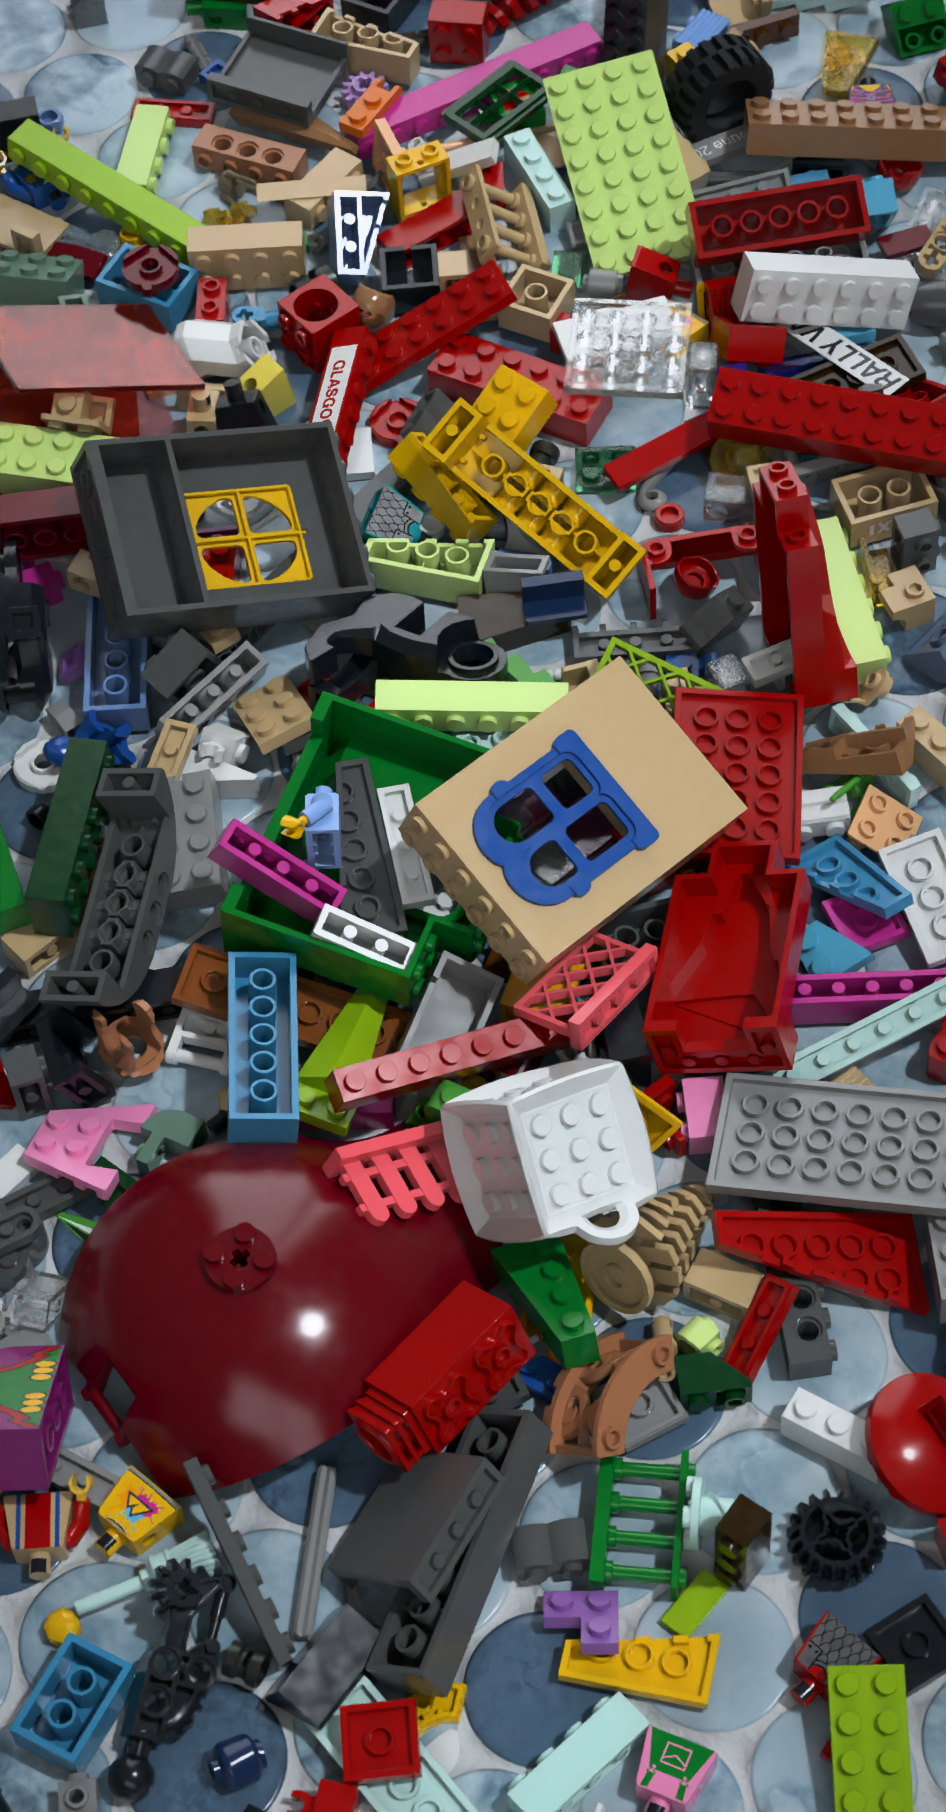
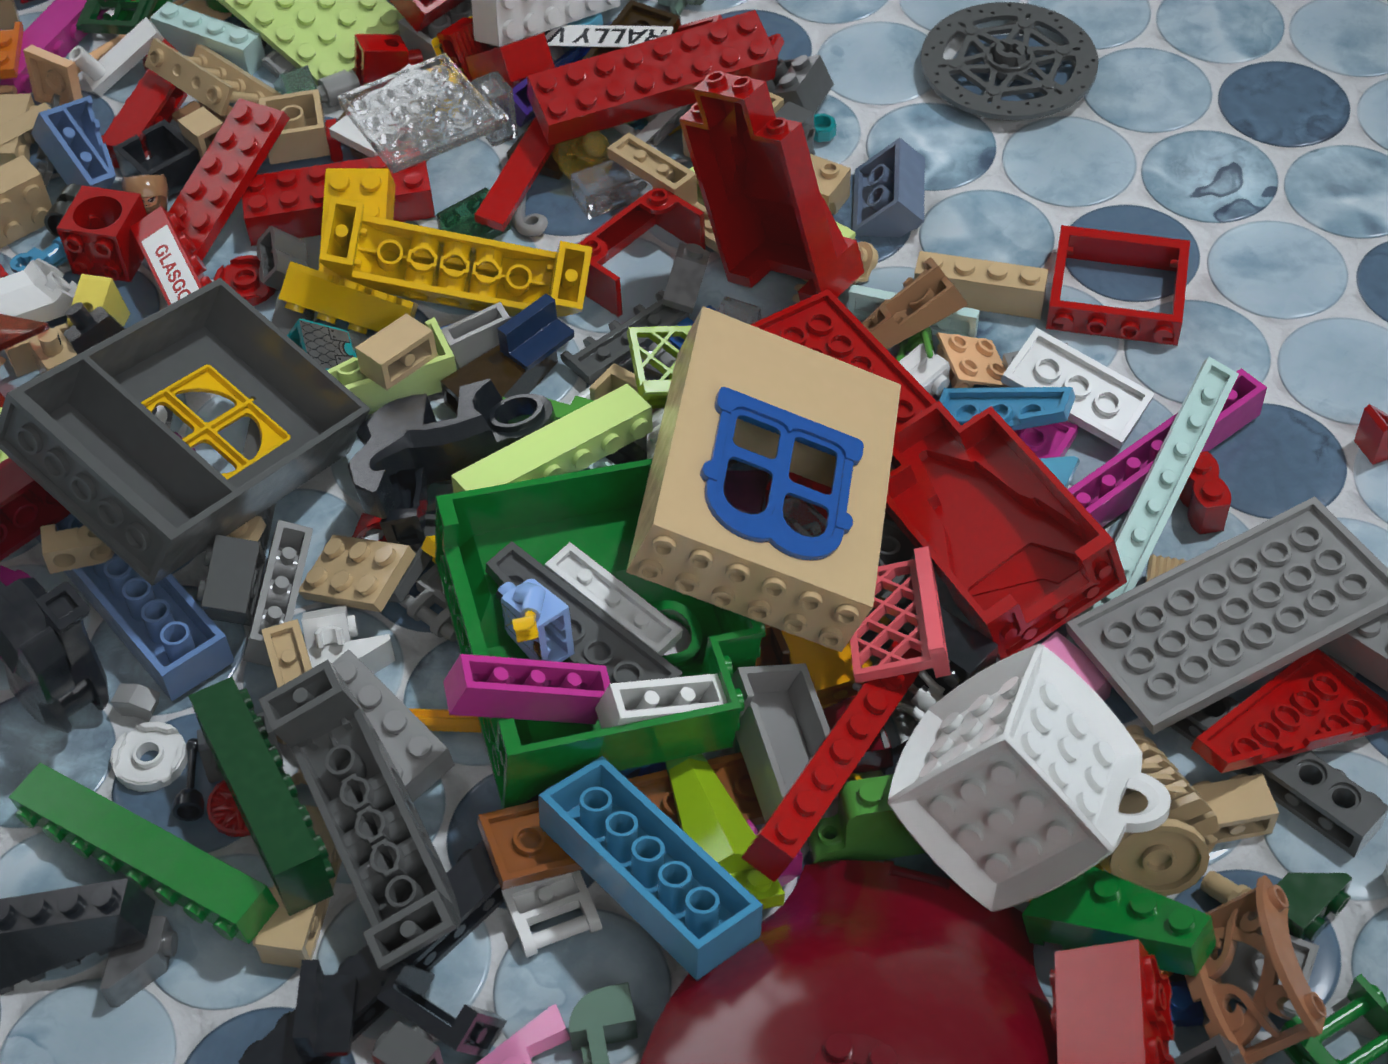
camera: 40 degrees left, 5 degrees down
(72, 664) = (106, 642): medium lavender plate -> none
(92, 729) = (168, 725): blue animal -> none
(118, 1050) = (507, 956): nougat piece -> none
(219, 1121) = (635, 963): black arm -> none
(383, 1159) = (891, 897): coral fence -> none
(411, 162) = (87, 65): yellow window -> none
(433, 553) = (396, 351): none -> tan brick
(669, 517) = (559, 230): red tile -> none
(695, 577) = (632, 261): red hair -> none
(699, 1336) = (1256, 862): yellowish green plate -> none
(761, 1325) = (1302, 819): red tile -> none
(769, 665) = (769, 284): white panel -> none

